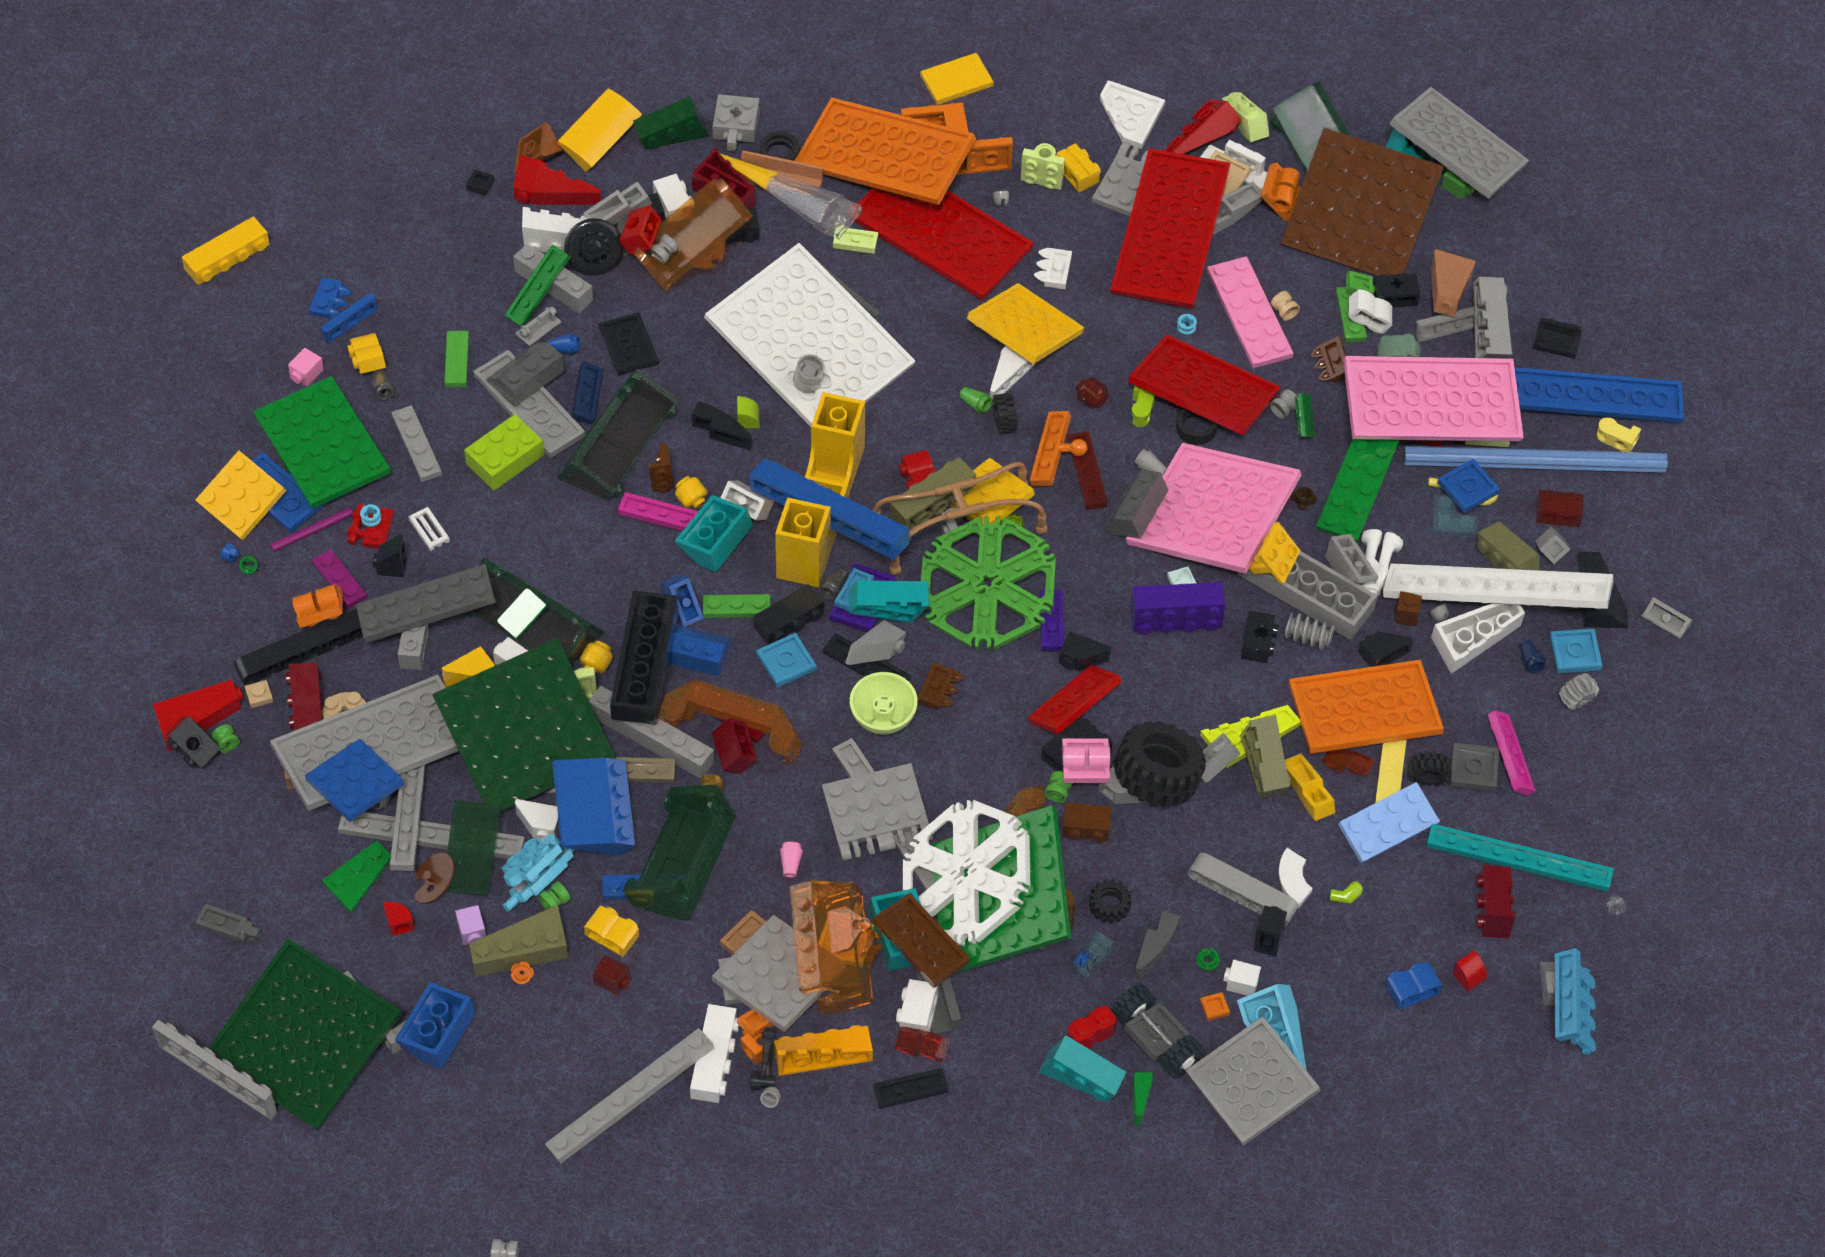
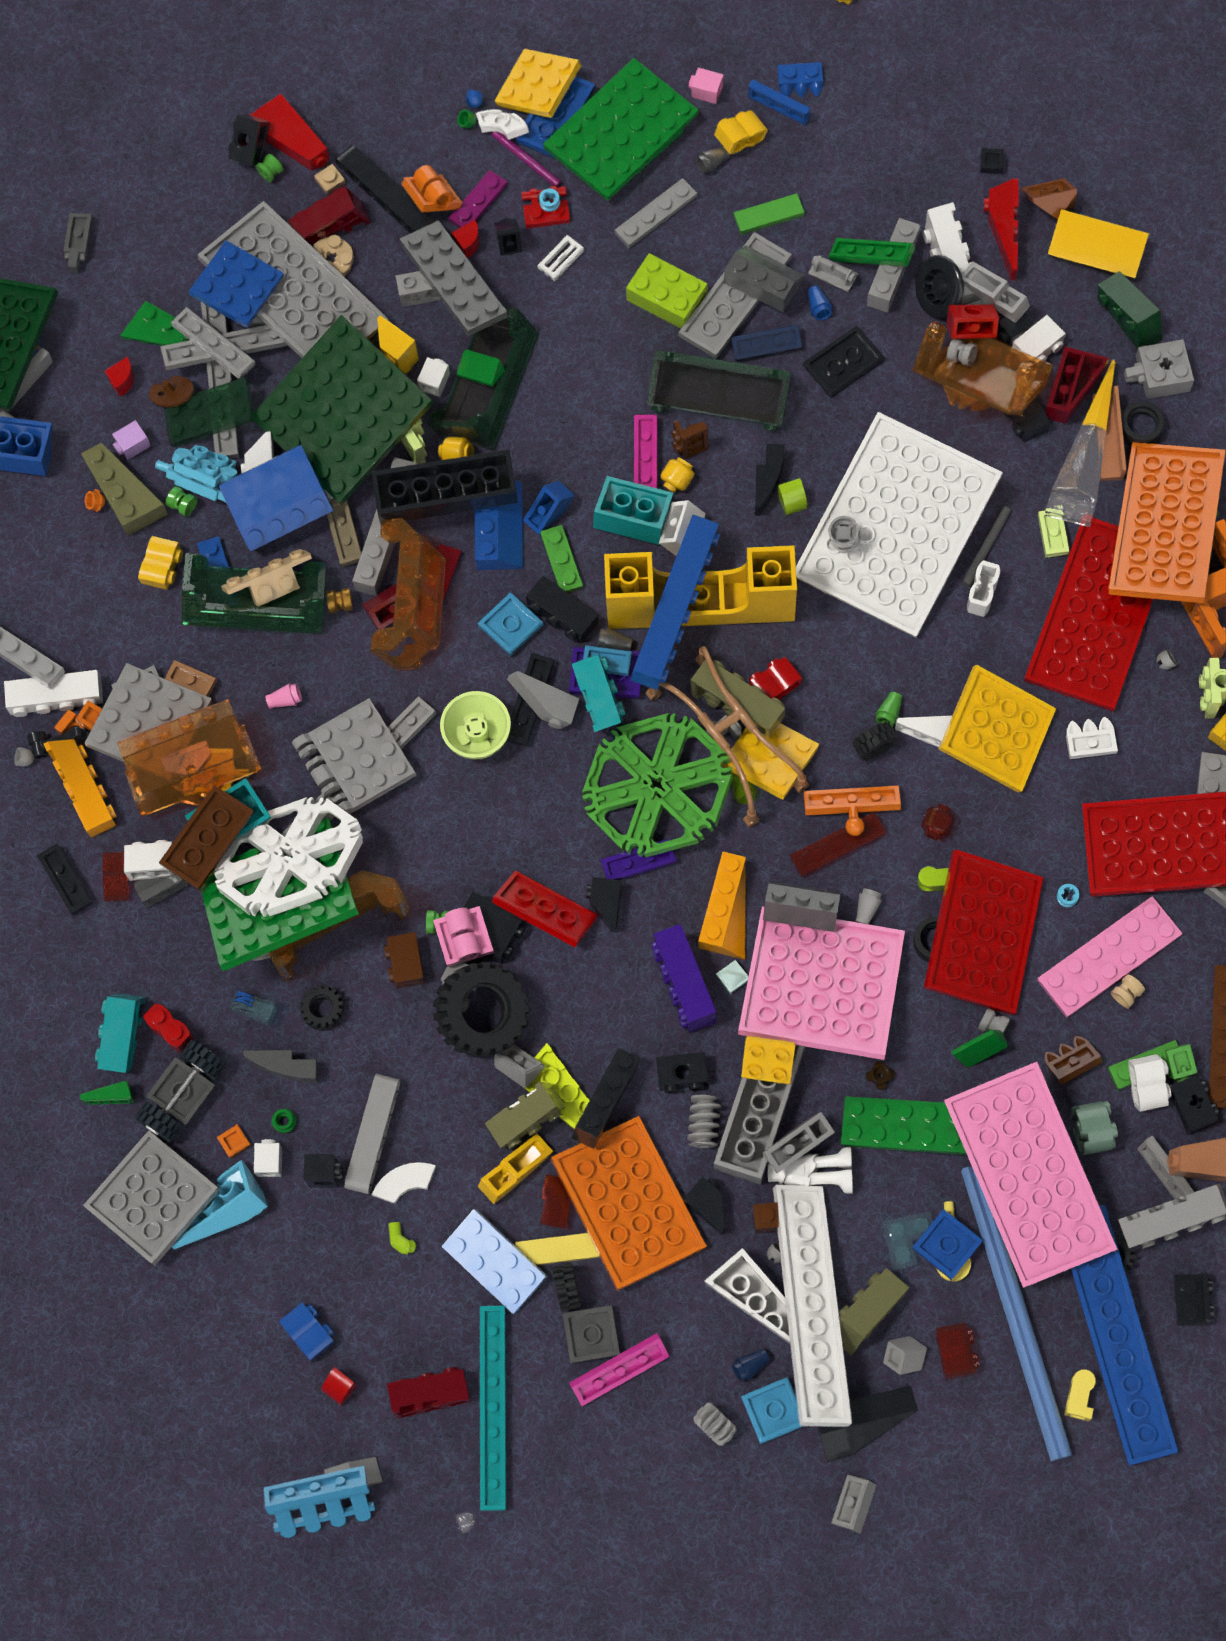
camera: 80 degrees right, 15 degrees up
(268, 534) = (497, 121): none -> white tile
(377, 588) = (467, 238): none -> red brick
(405, 820) = (213, 343): none -> light grey tile
(611, 975) = (111, 577): clear red brick -> none
(670, 834) = (270, 581): none -> tan bracket
(891, 299) = (983, 588): none -> white brick
(938, 686) = (523, 773): reddish brown plate -> none
(1114, 564) = (725, 915): none -> light orange wedge
(1269, 693) = (605, 1098): none -> black brick

